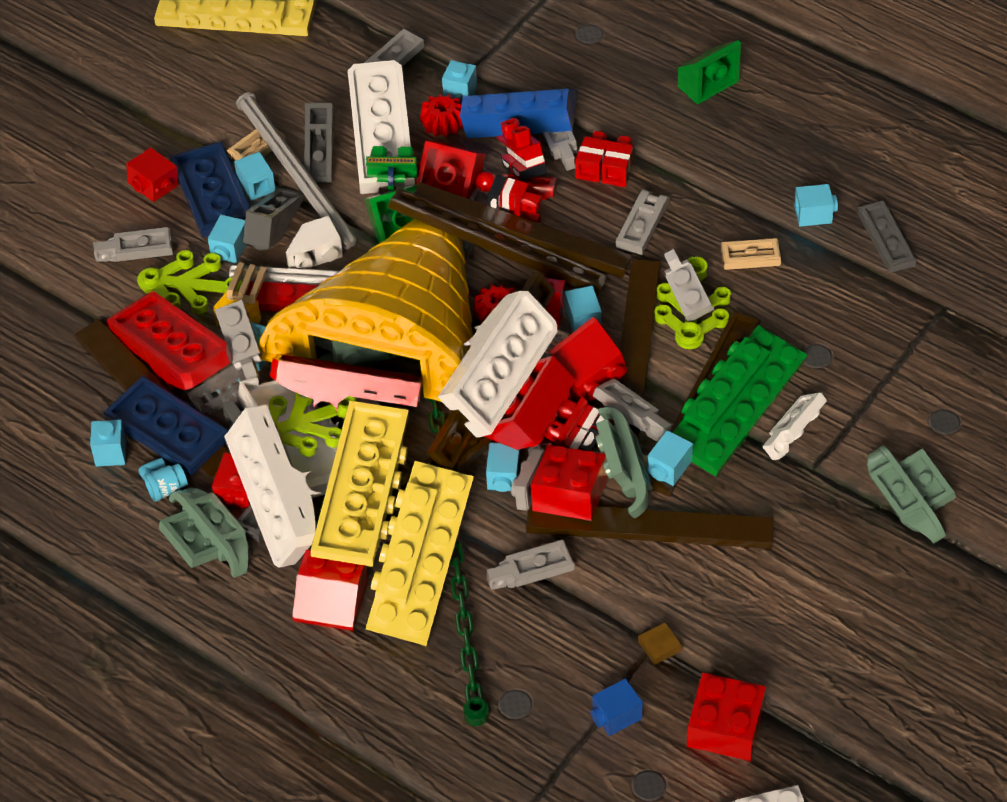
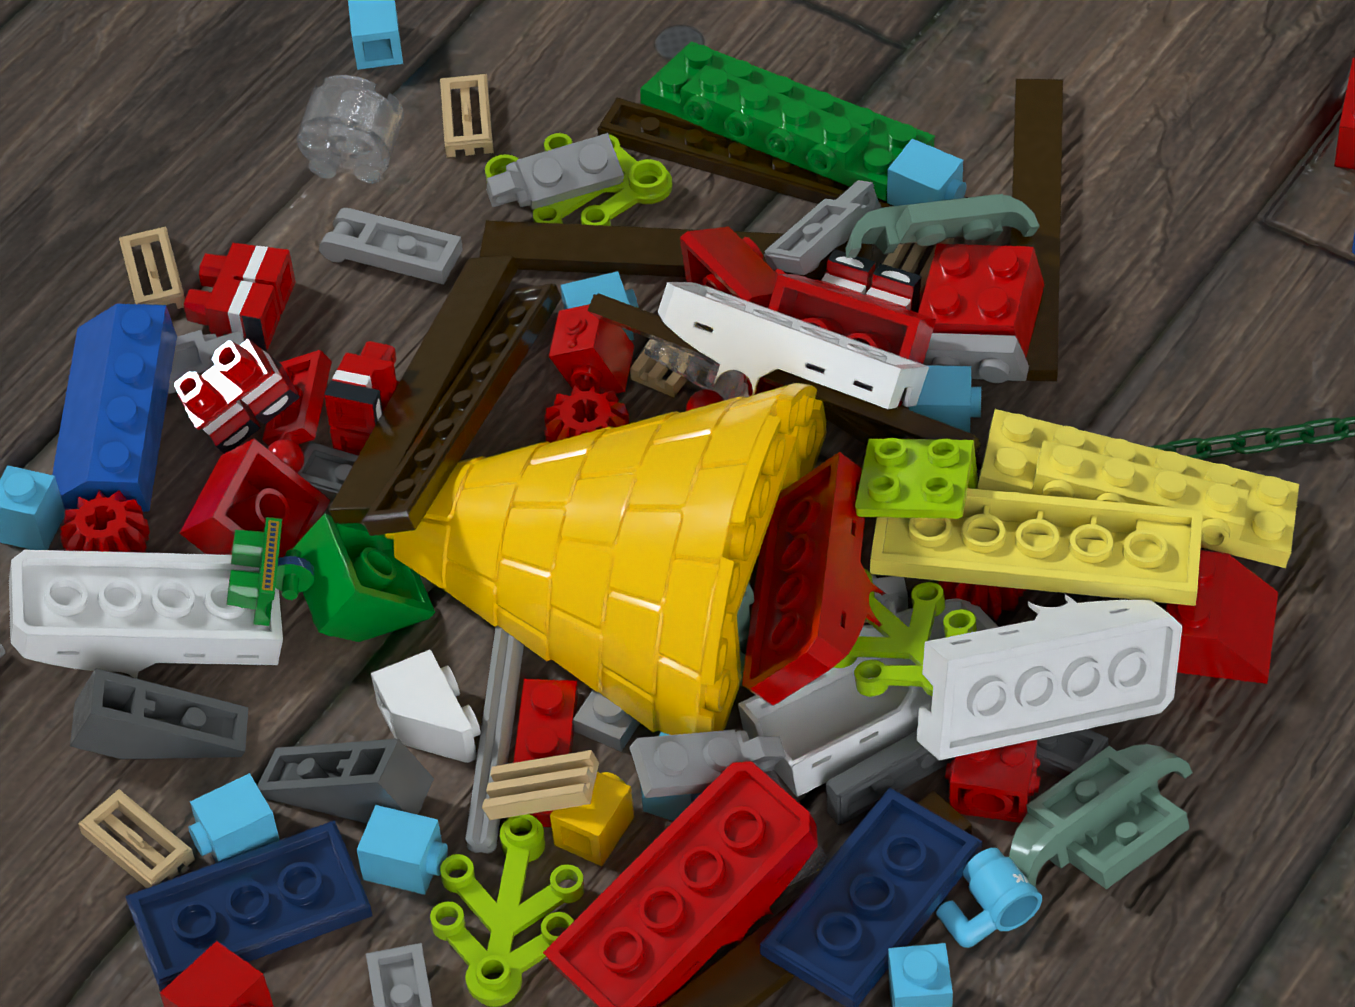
camera: 90 degrees left, 0 degrees up
(292, 164) = (205, 762): light grey axle -> none
(404, 423) = (916, 478): none -> lime bracket
(531, 566) = (1136, 359): light grey hinge -> none
(633, 127) = (159, 296): none -> tan tile
(659, 643) = (1259, 207): pearl gold tile -> none
(711, 72) = (51, 151): green slope -> none
(720, 191) = (349, 129): none -> clear brick
(792, 424) = (831, 53): white hinge -> none

